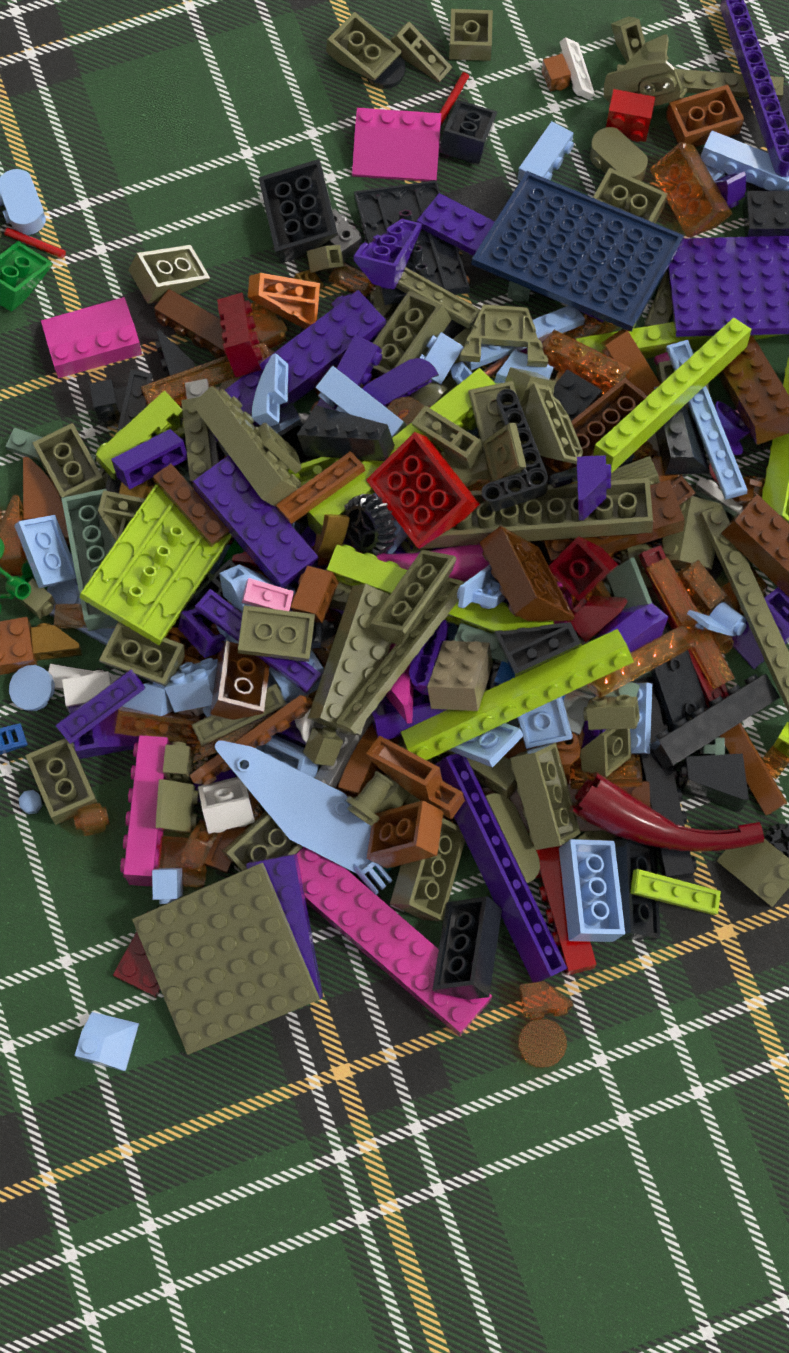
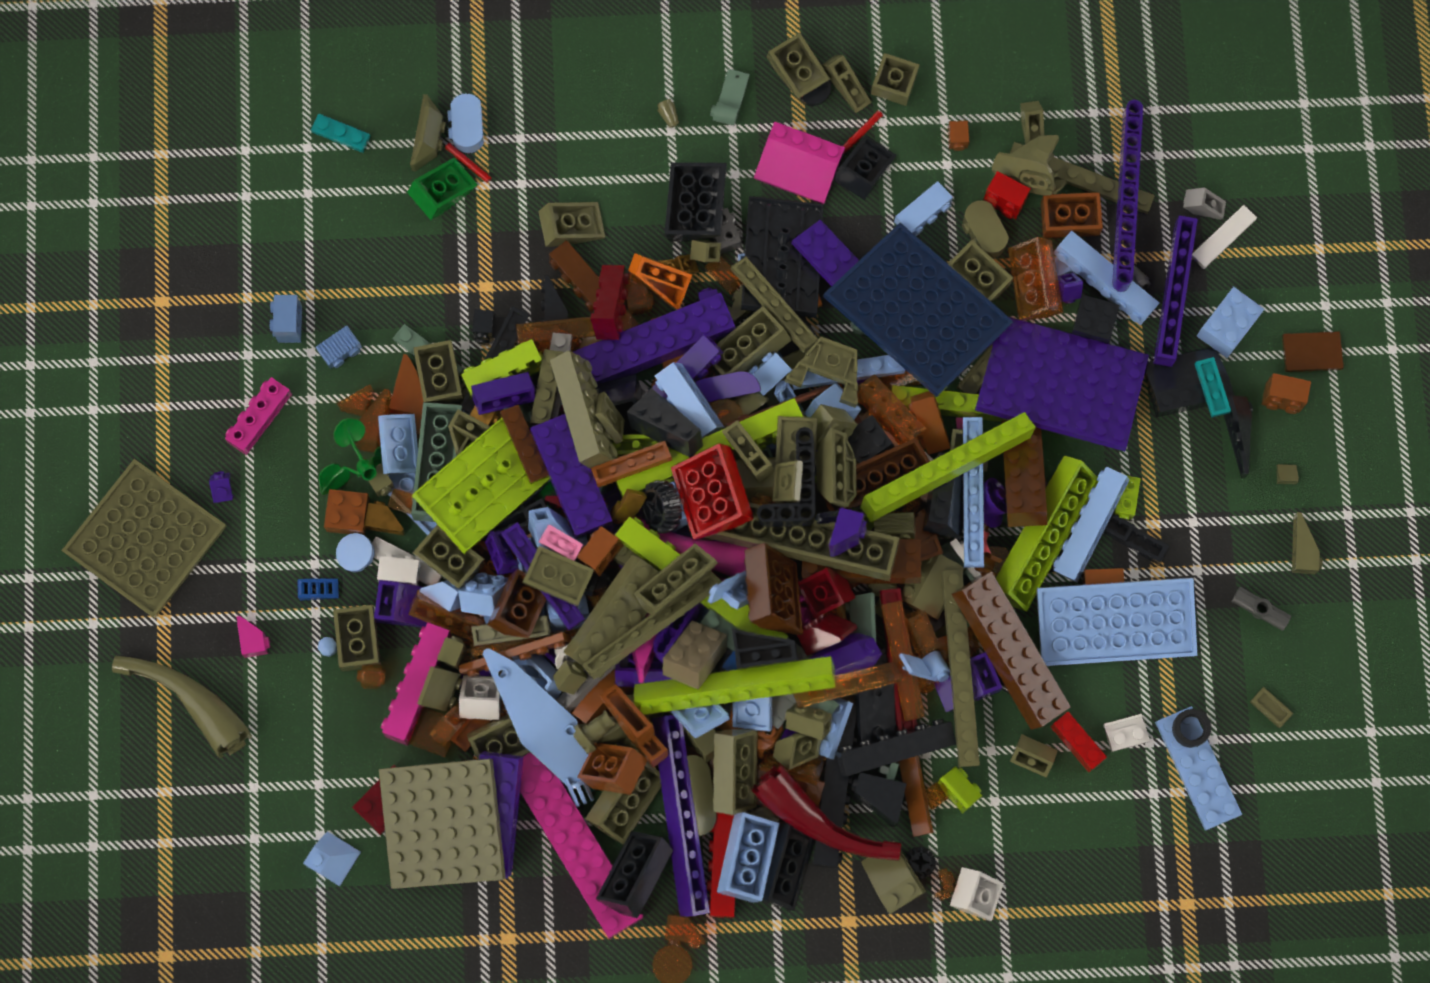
camera: 15 degrees right, 5 degrees up
(91, 337) = (490, 261): dark pink slope -> none
(100, 706) = (403, 589): dark purple plate -> none
(167, 884) = (414, 749): light blue brick -> none
(238, 133) = (668, 112): none -> olive cone
(271, 392) = (619, 364): light blue slope -> none
(301, 101) = (731, 97): none -> sand green door
(388, 254) = (753, 270): dark purple wedge -> none
(579, 75) = (977, 136): white plate -> none
(675, 892) = (816, 878): lime tile -> none

